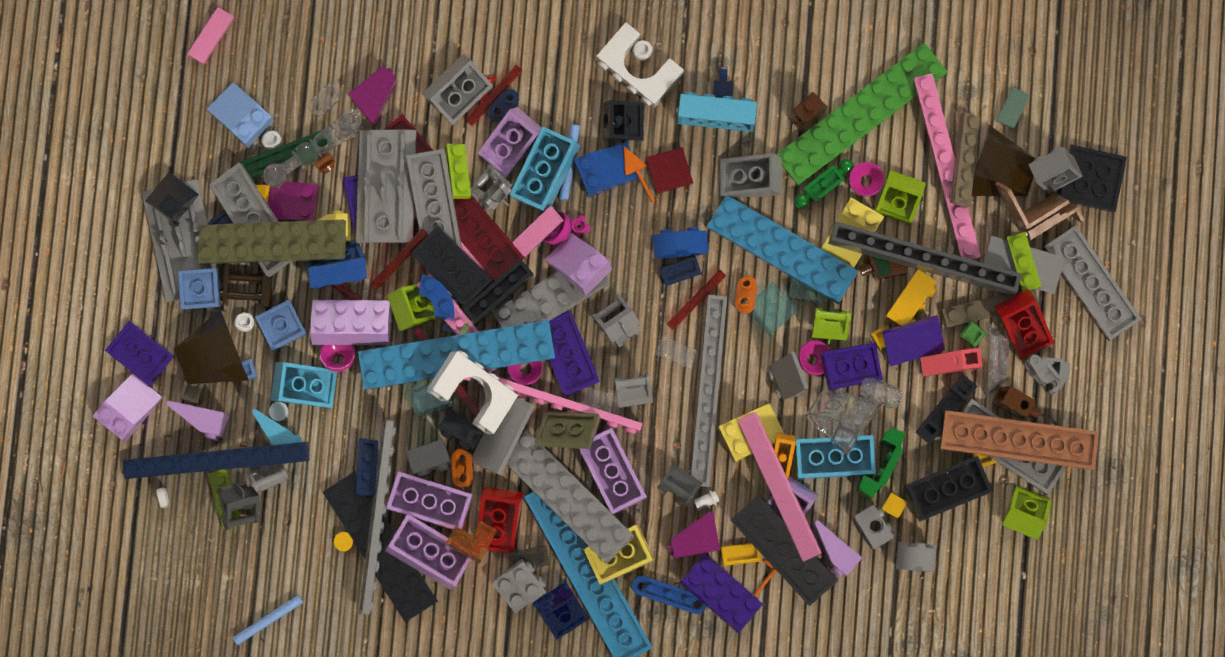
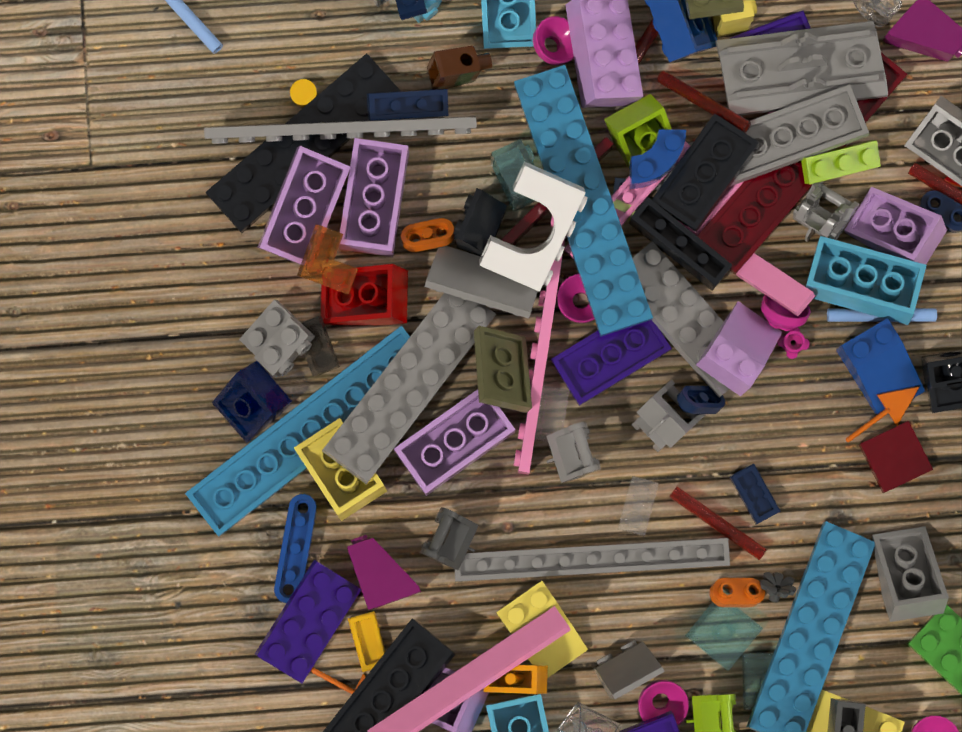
camera: 80 degrees right, 0 degrees up
(345, 434) = (456, 67): none -> reddish brown torso
(429, 458) = (434, 186): dark grey brick -> none
(610, 297) = (700, 400): none -> dark blue plate
(680, 243) = (794, 487): blue brick -> none
(706, 500) = (436, 581): white pin -> none
(746, 266) = (777, 586): none -> dark grey plant
(823, 184) = (916, 680): green plate -> none

